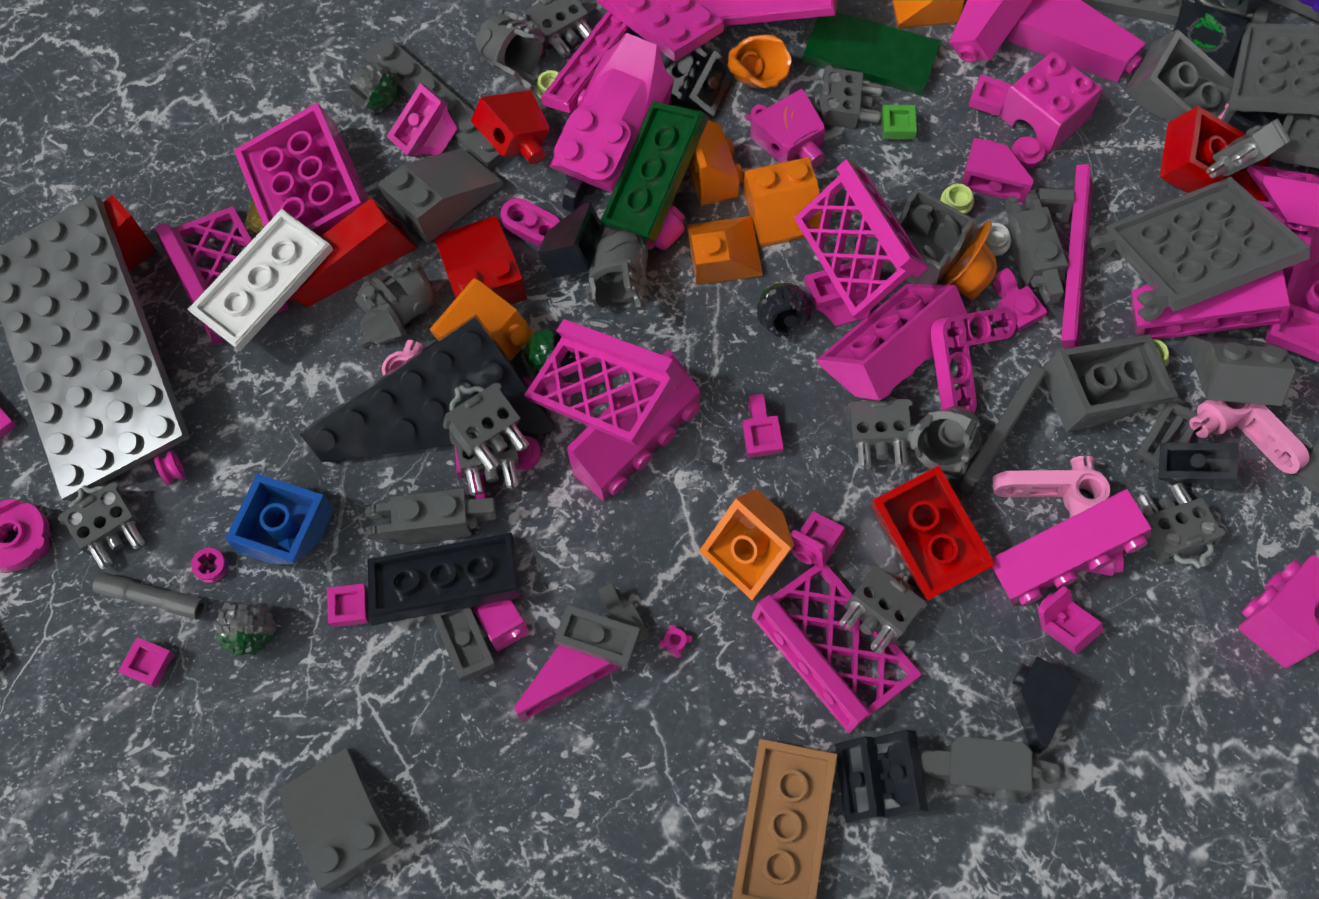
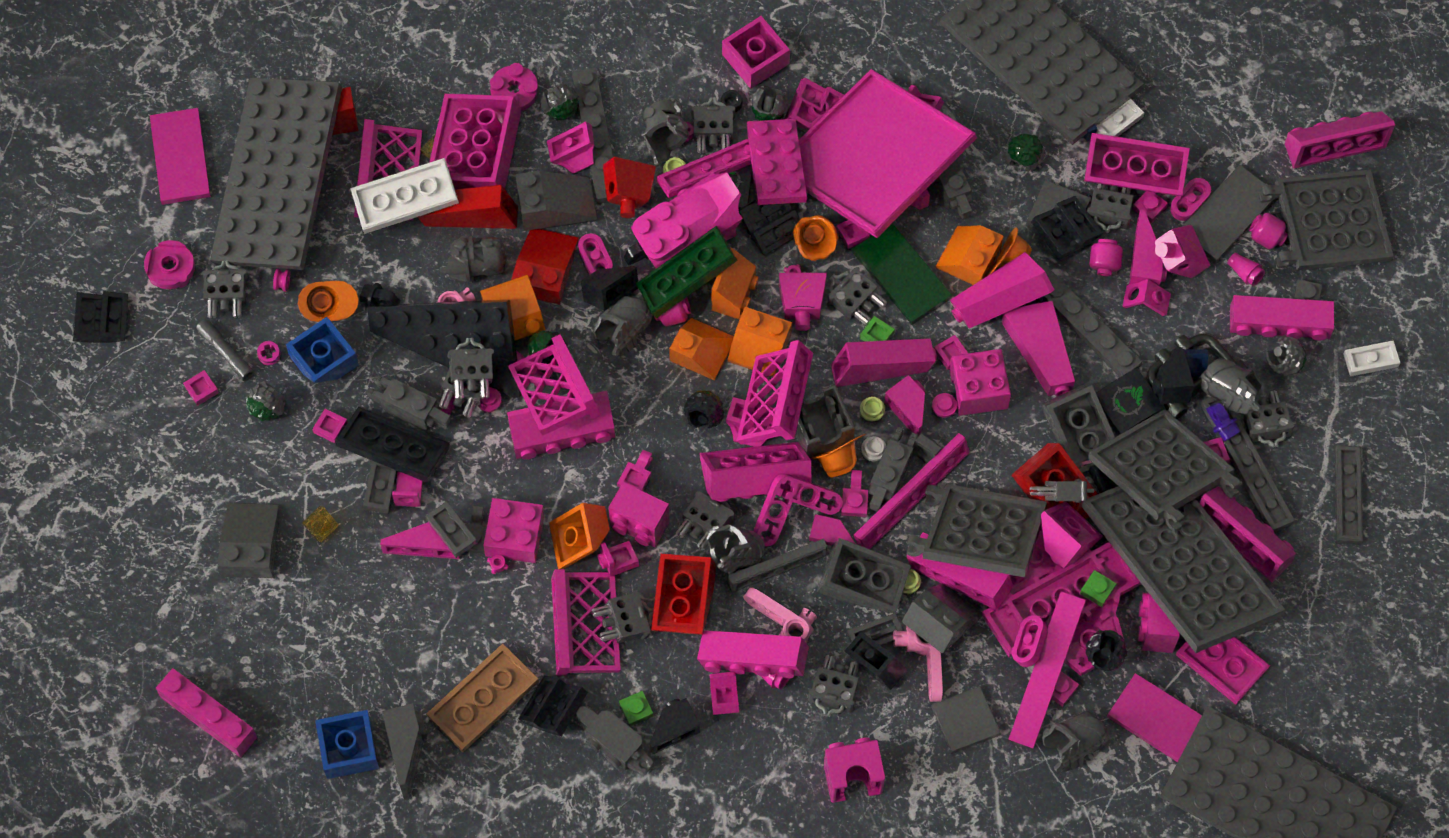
camera: 30 degrees right, 0 degrees up
(243, 453) = (328, 299): none -> orange piece
(300, 415) = (377, 295): none -> black piece
(308, 91) = (516, 75): none -> dark pink plate
(418, 738) = (320, 524): none -> clear yellow plate
(669, 586) = (514, 530): none -> dark pink brick
(793, 36) = (851, 233): none -> dark pink plate
(807, 471) = (639, 515): none -> dark pink brick
(928, 144) = (881, 360): none -> dark pink slope
(976, 710) = (636, 708): none -> bright green plate
(1020, 355) = (829, 530): none -> dark pink tile

